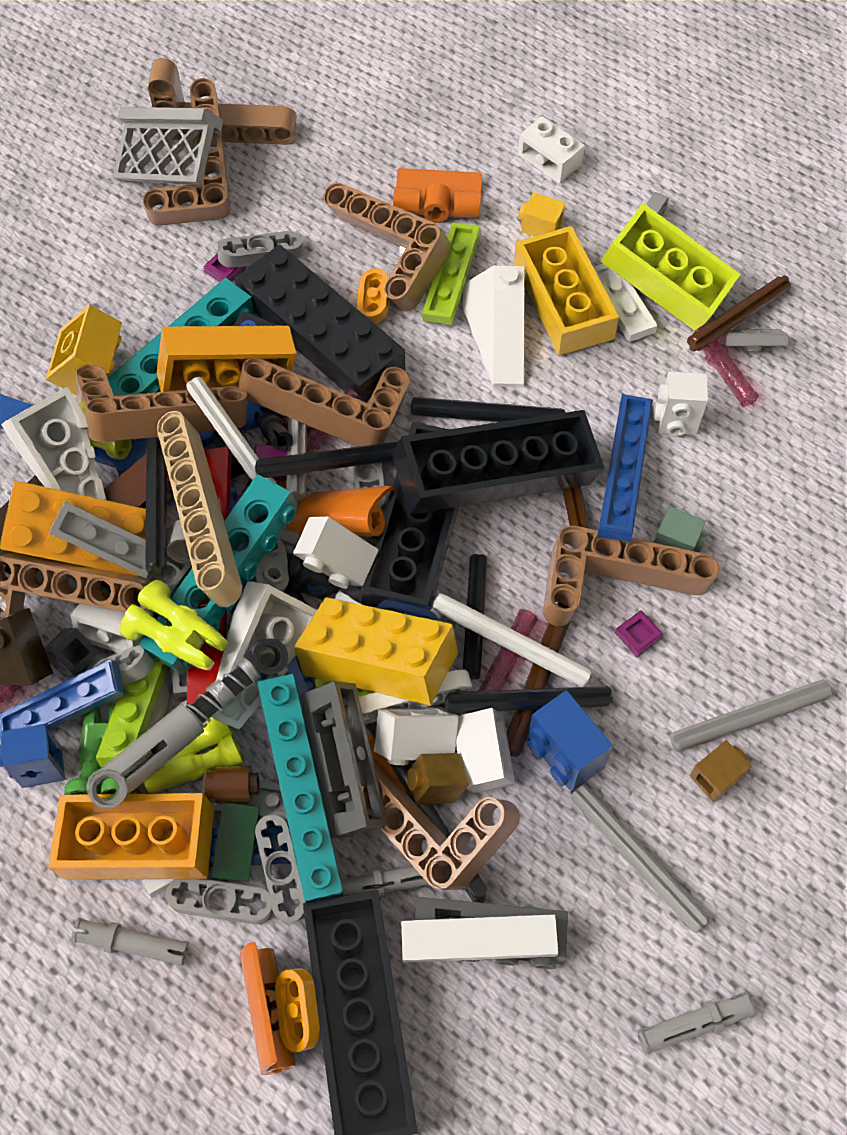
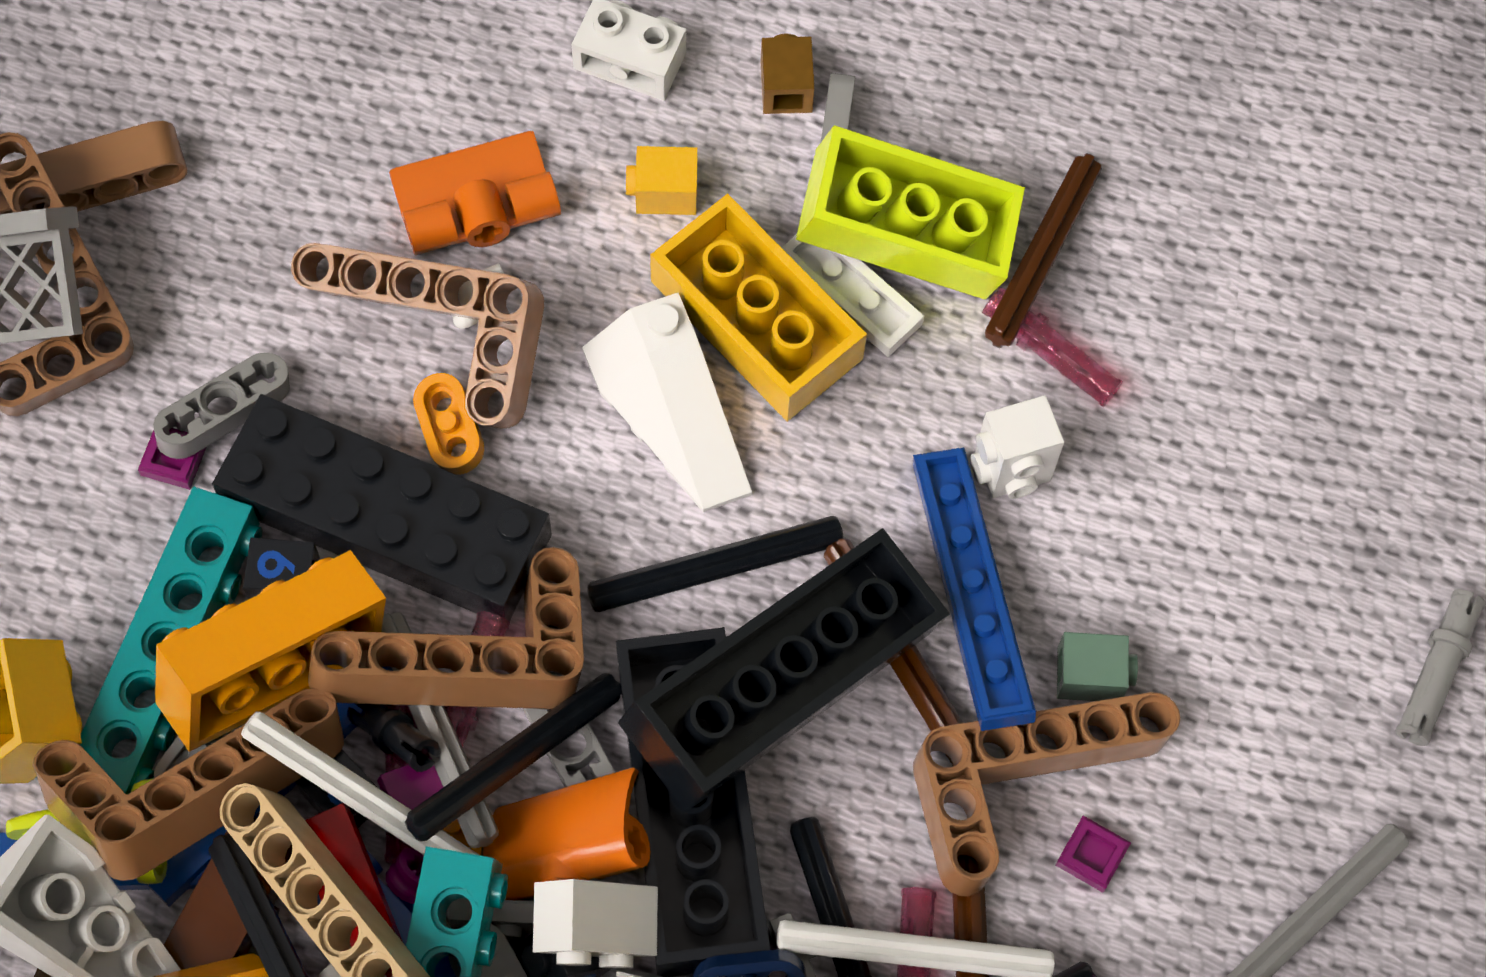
camera: 25 degrees left, 5 degrees up
(452, 274) = (562, 344): lime plate -> none
(631, 187) = (787, 74): none -> pearl gold brick
(755, 338) = (1084, 282): light grey plate -> none

